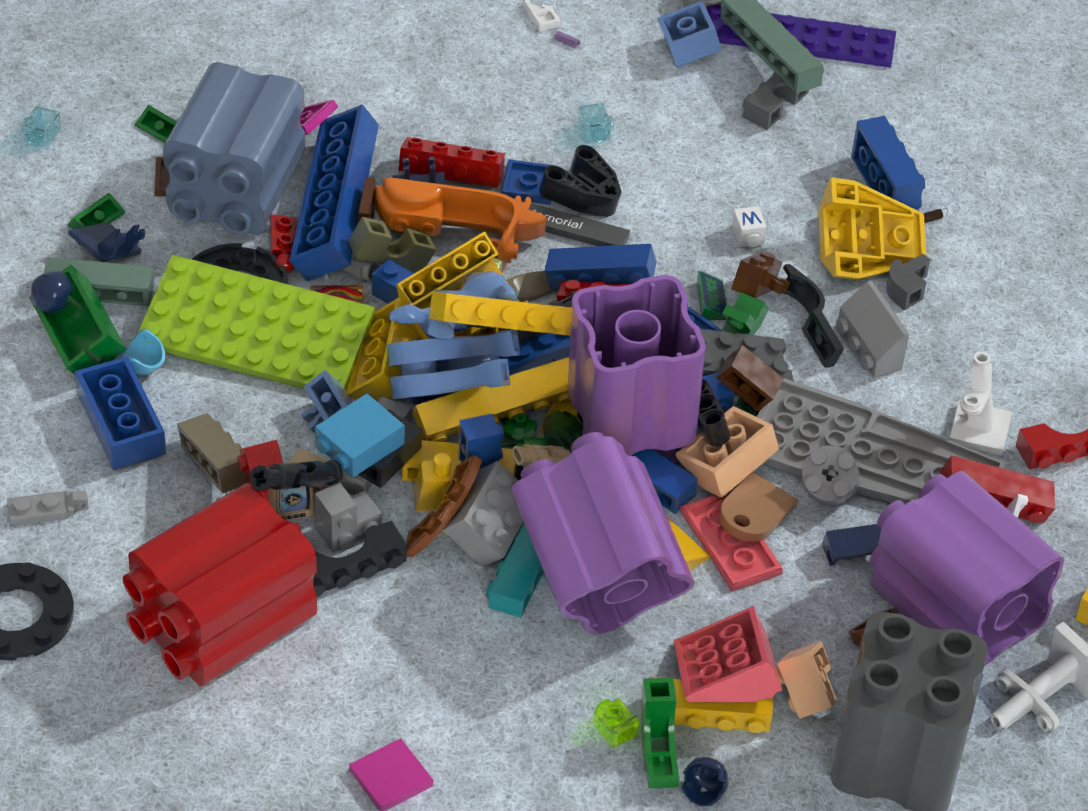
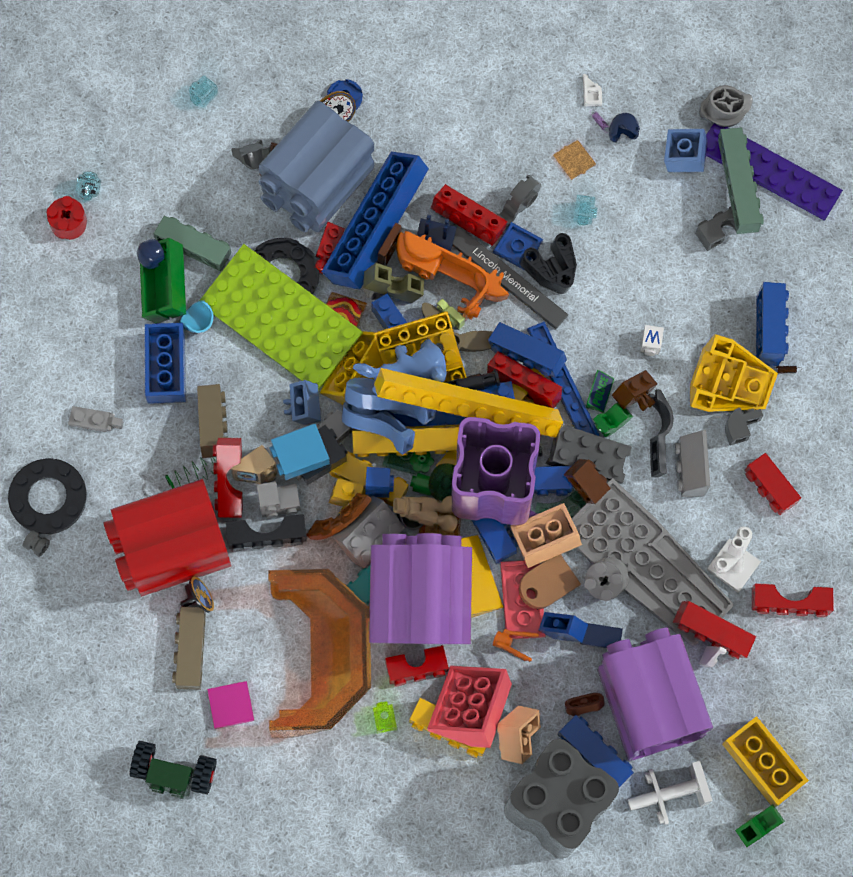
camera: 20 degrees right, 25 degrees up
(22, 665) = (36, 543): none -> dark grey wheel
(101, 211) = (213, 182): green slope -> none
(108, 242) = (209, 210): dark blue plate -> none
(139, 173) = (251, 154): none -> dark grey piece
(156, 123) = (285, 112): green slope -> none
(278, 661) = (198, 593): none -> shield
(295, 475) = (242, 479): black piece -> none
(303, 722) = (190, 648): none -> dark tan brick
(315, 114) = (386, 143): dark pink tile -> none
(508, 641) = (337, 649): none -> clear orange windscreen
(513, 125) = (523, 197): none -> dark grey piece
(555, 83) = (574, 159): none -> clear orange piece
(602, 30) = (624, 124): none -> dark blue helmet
(611, 662) = (400, 671): none -> red arch
(658, 732) = (403, 745): green arch -> none
(708, 774) = (423, 792): dark blue hair -> none
(712, 418) = (542, 513): black beam -> none
(731, 587) = (503, 641): none -> orange plant
(803, 542) = (563, 627): none -> blue brick
(980, 328) = (772, 484): none -> red brick

